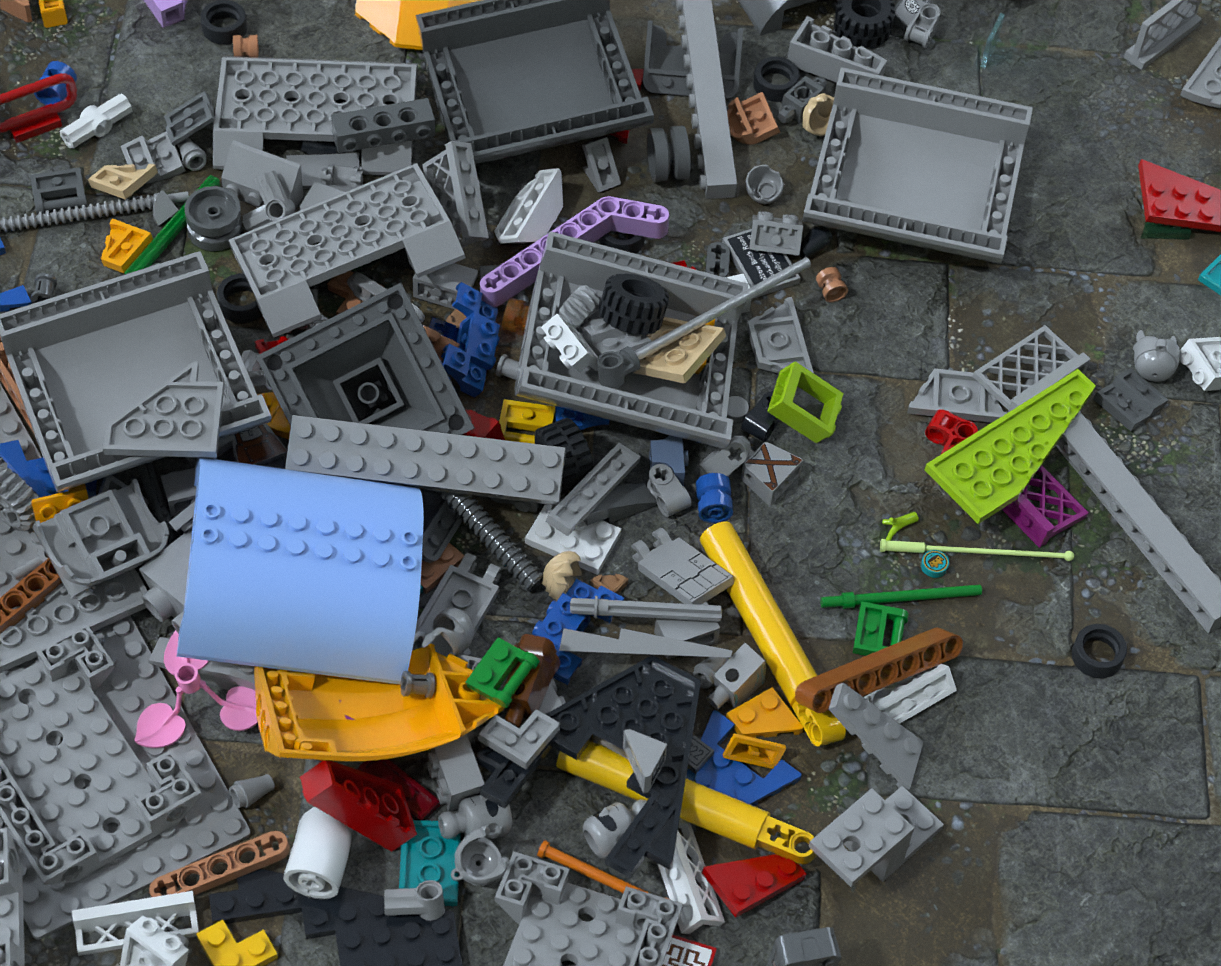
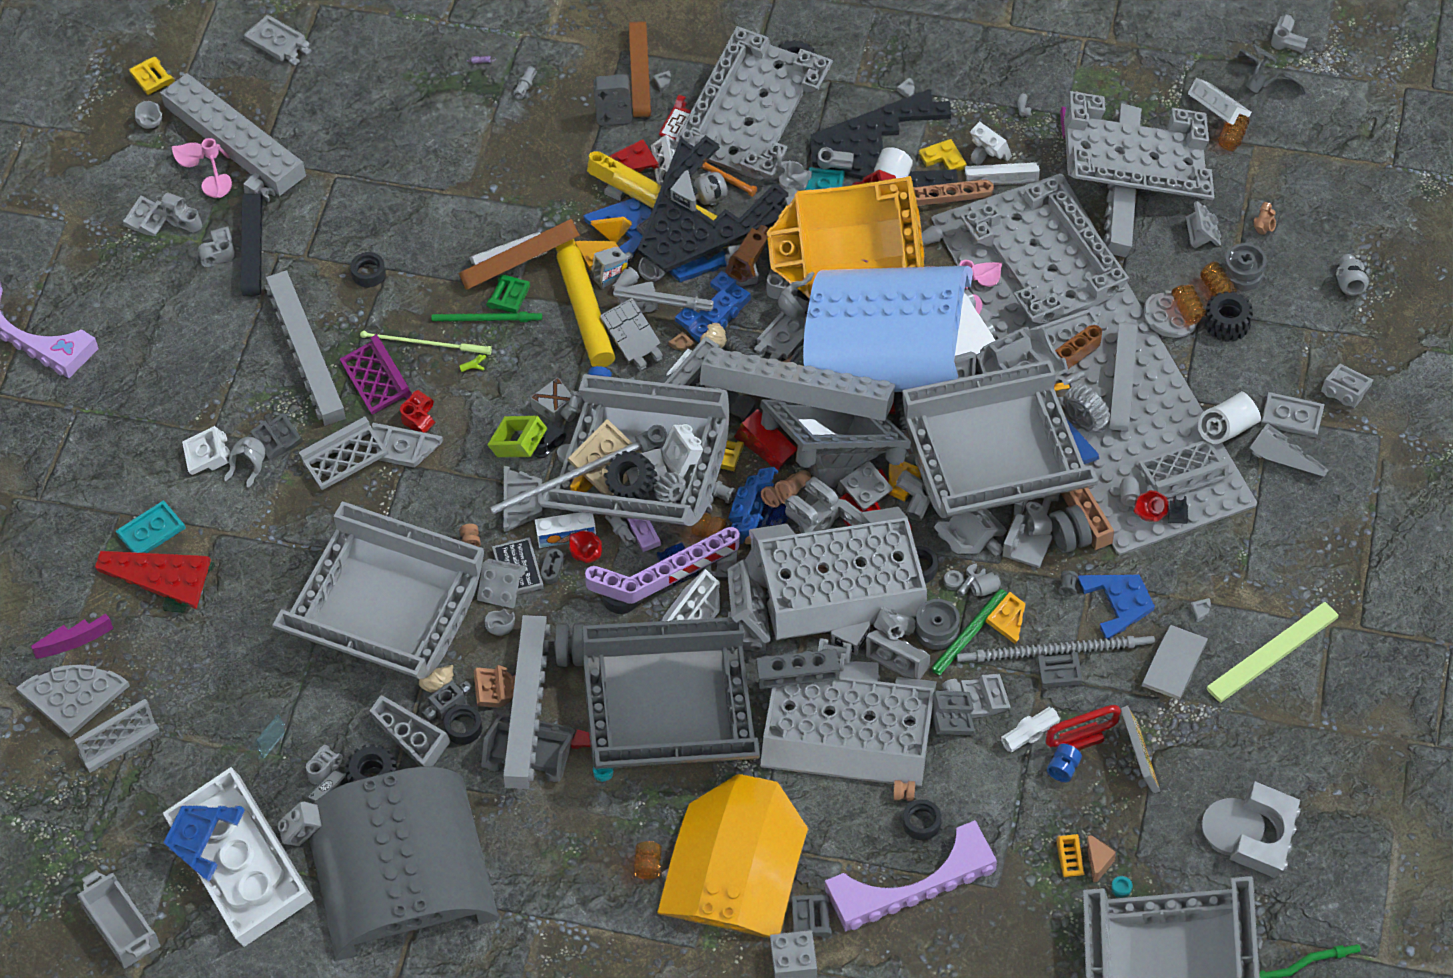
camera: 165 degrees left, 0 degrees up
(121, 180) = (1009, 669): tan wing -> none
(163, 208) = (976, 644): light grey tile -> none
(171, 421) = (971, 385): light grey wing -> none
(417, 684) = (819, 264): dark grey bush -> none
(496, 667) = (768, 248): green plate -> none
(520, 744) = (757, 210): light grey plate -> none
(636, 643) = (670, 274): light grey slope -> none
(877, 834) = (549, 160): light grey bracket -> none
(879, 734) = (530, 217): light grey wing -> none
(934, 563) = (457, 336): tile -> none
(1004, 456) = (396, 375): lime wing -> none

